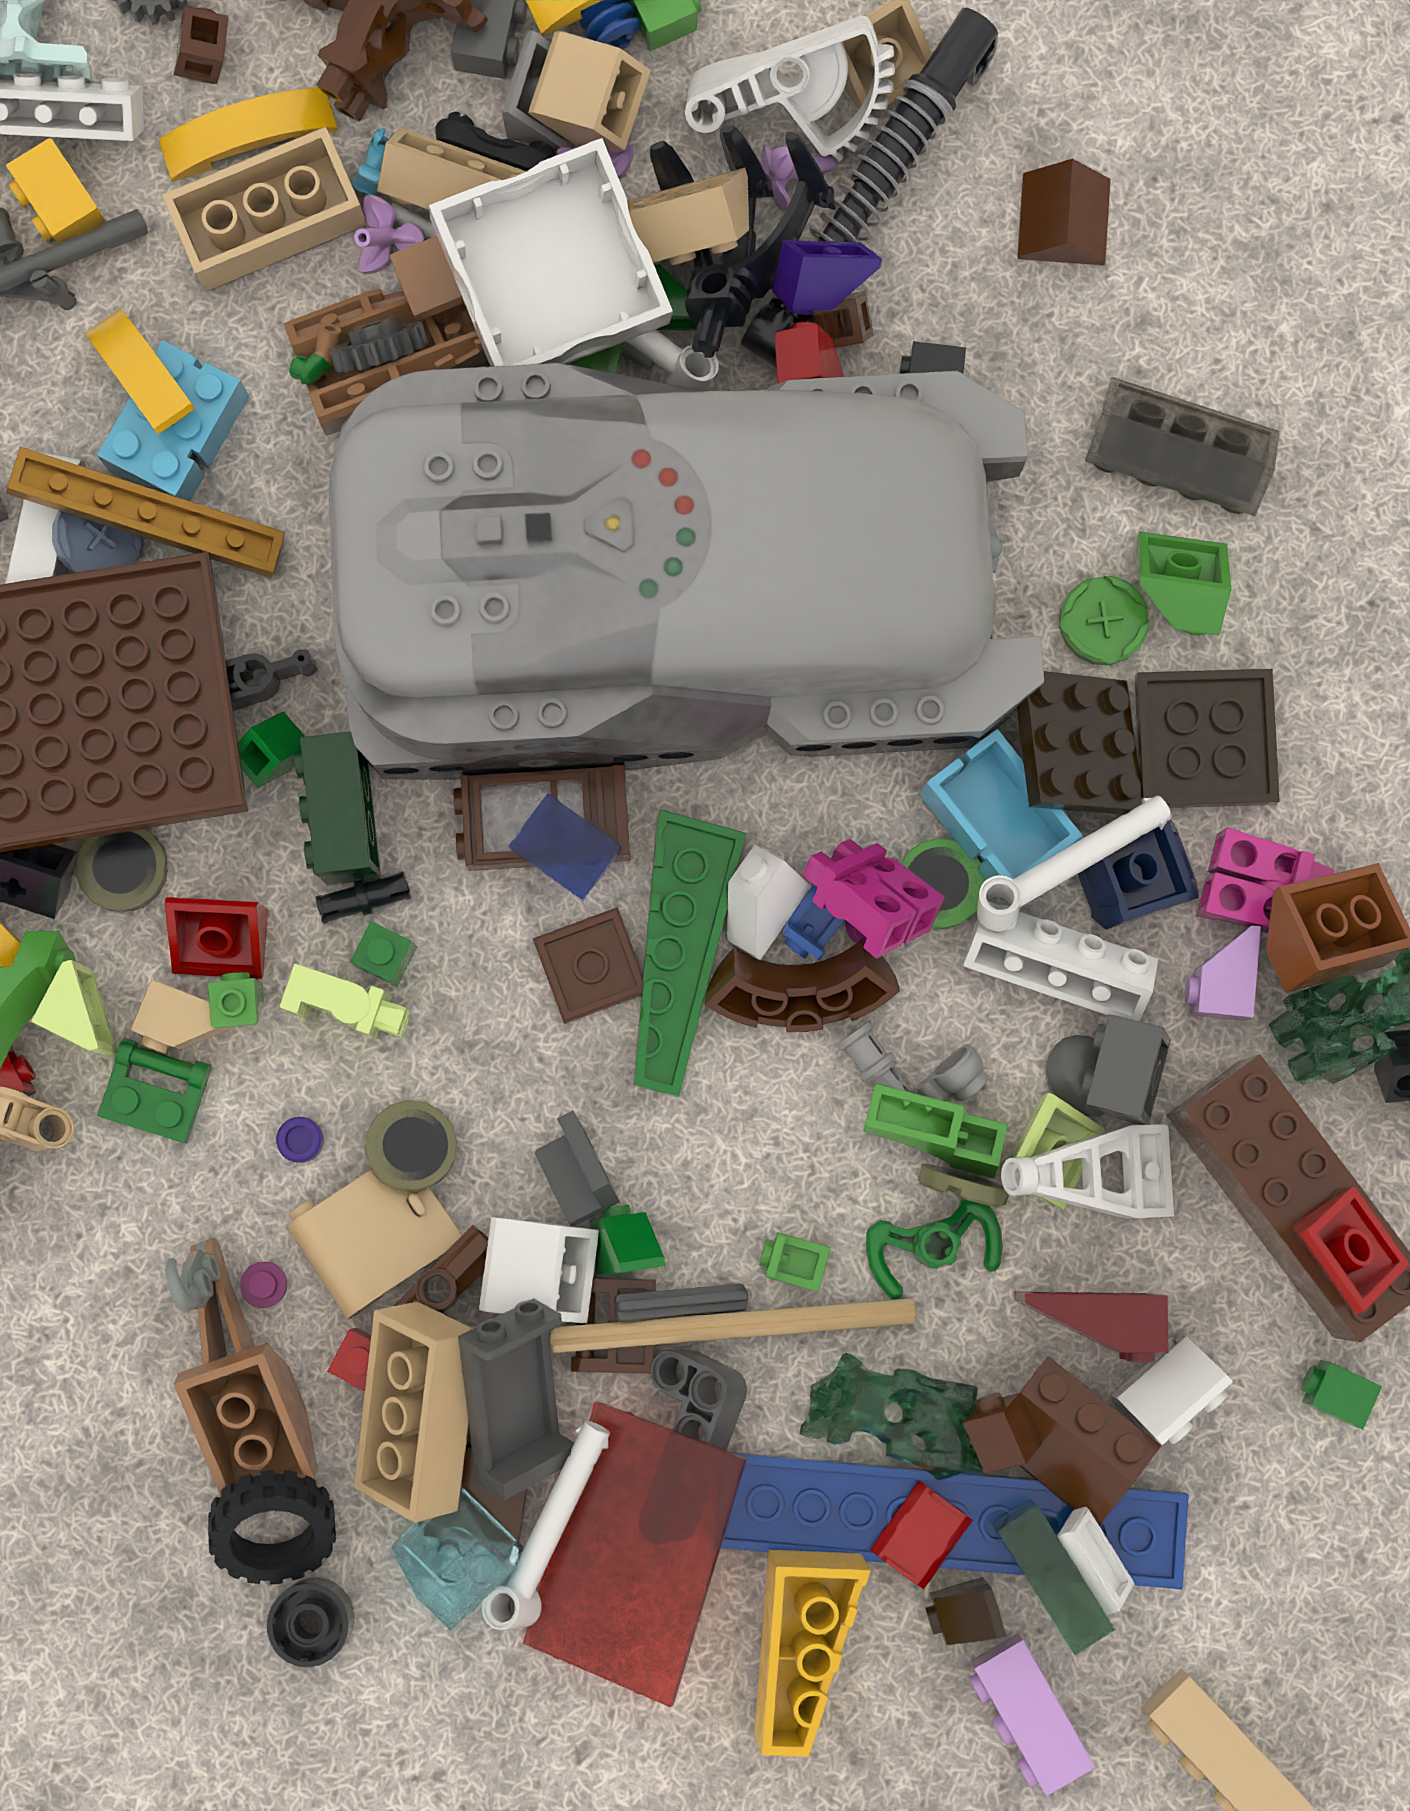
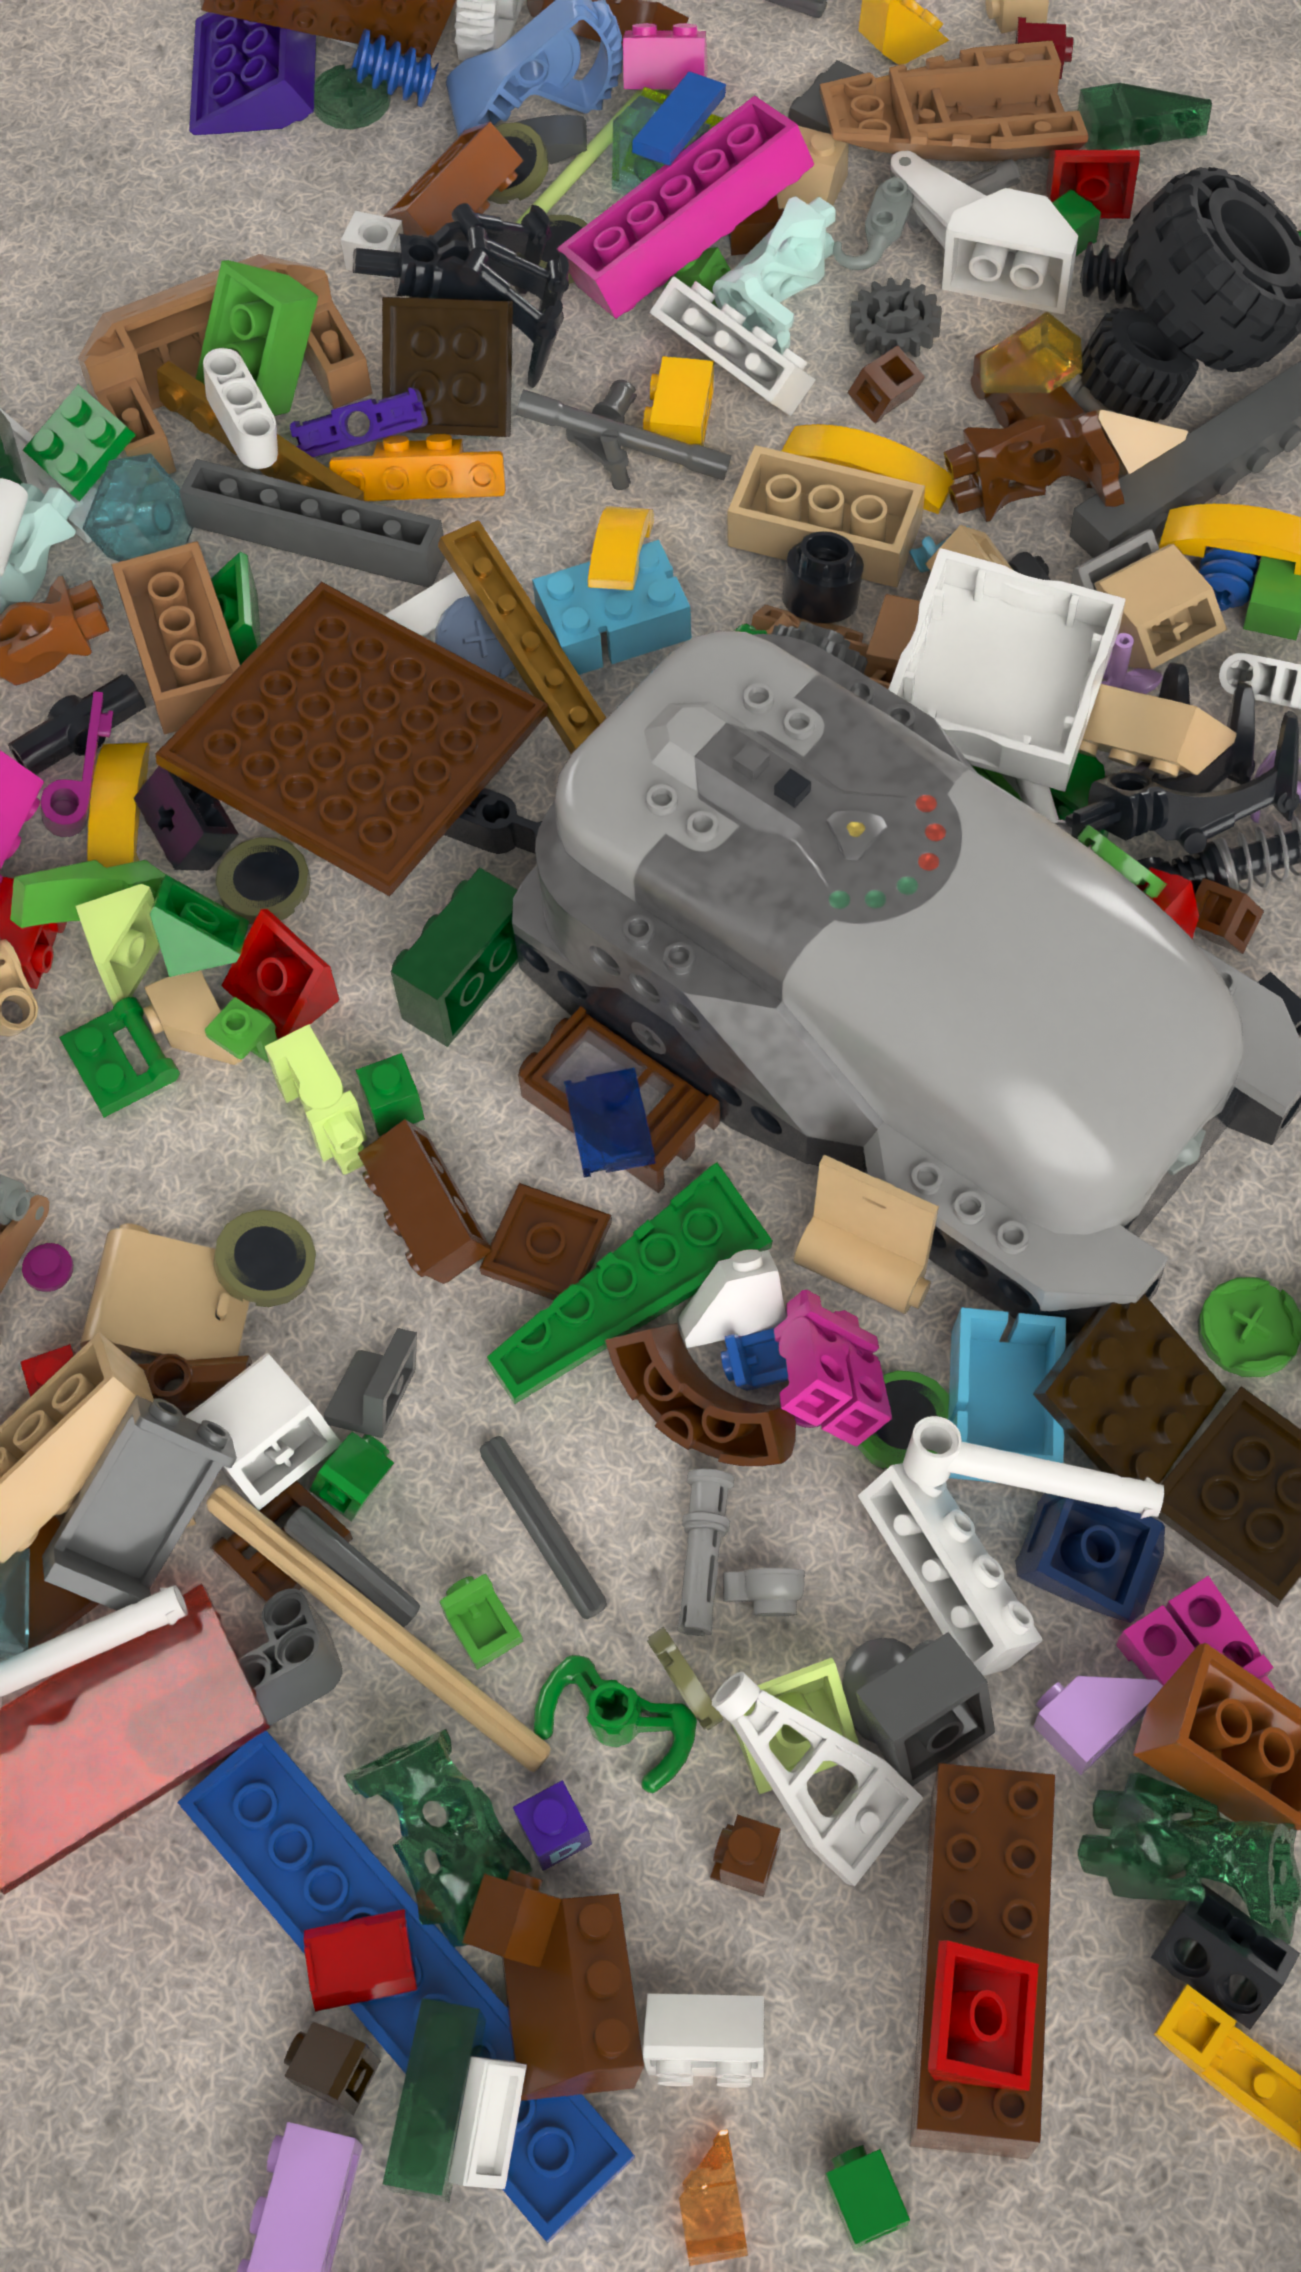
camera: 45 degrees right, 20 degrees down
(126, 954) = (194, 929): none -> green slope
(269, 749) = (445, 868): green brick -> none
(300, 1139) = (188, 1184): dark purple tile -> none
(314, 270) = (822, 578): none -> black piece
(363, 897) = (418, 1044): black pin -> none
(379, 239) = (910, 585): lavender plant -> none
(484, 1013) = (423, 1203): none -> reddish brown brick
(764, 354) = (1121, 861): none -> bright green tile
(772, 1162) = (543, 1527): none -> dark grey axle
(804, 1628) = (173, 1939): yellow wedge -> none
(819, 784) = (869, 1236): none -> tan door
(821, 273) = (1230, 850): dark purple slope -> none
(937, 1129) = (705, 1609): bright green slope -> none
(962, 1348) = (552, 1825): none -> dark purple brick
(1094, 1258) = (746, 1855): none -> reddish brown brick
(1118, 1321) = (713, 1919): dark red slope -> none
(1255, 1479) = (713, 2208): none -> clear orange slope

